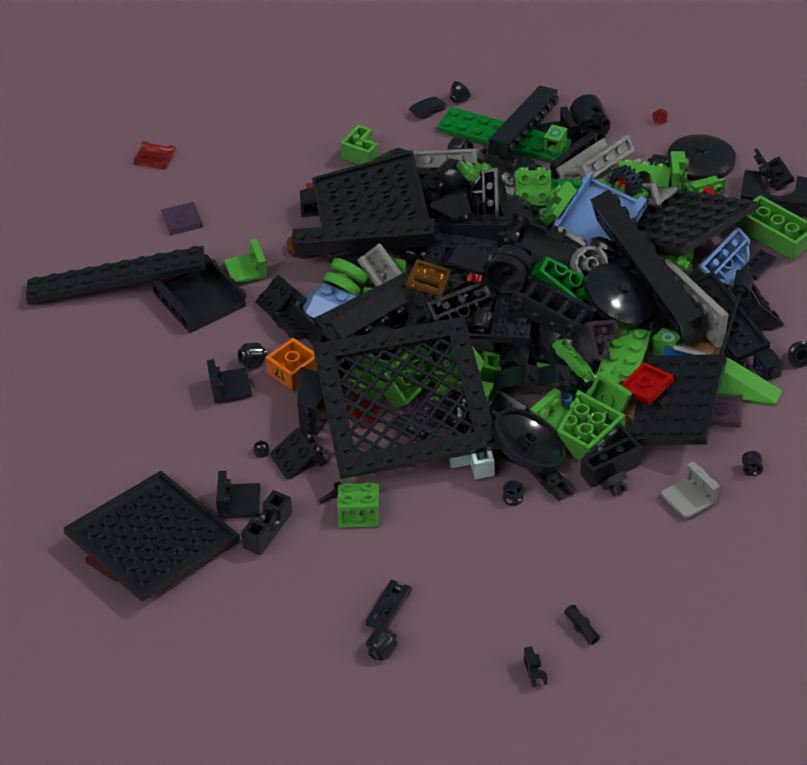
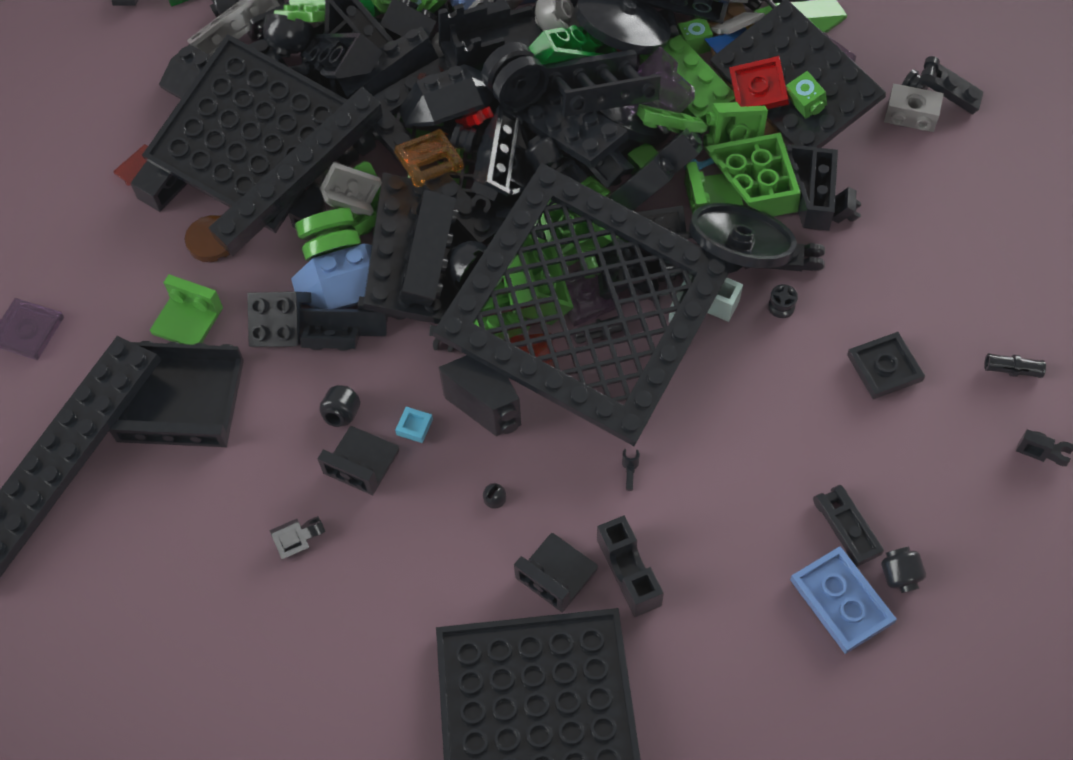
camera: 50 degrees left, 15 degrees up
(160, 387) = (292, 537): none -> plate
(270, 390) = (414, 424): none -> medium azure plate
(287, 360) = (401, 374): orange brick -> none
(296, 452) = (541, 465): black bracket -> none
(337, 628) = (843, 599): none -> medium blue plate
(358, 505) = (678, 452): bright green bracket -> none
(359, 146) = (126, 87): bright green brick -> none
(517, 563) = (885, 365): none -> black plate
(659, 405) = (806, 95): none -> bright green brick
(692, 493) = (914, 154): light grey bracket -> none
(731, 472) = (913, 107): none -> light grey brick
(767, 478) = (953, 86): none -> black plate

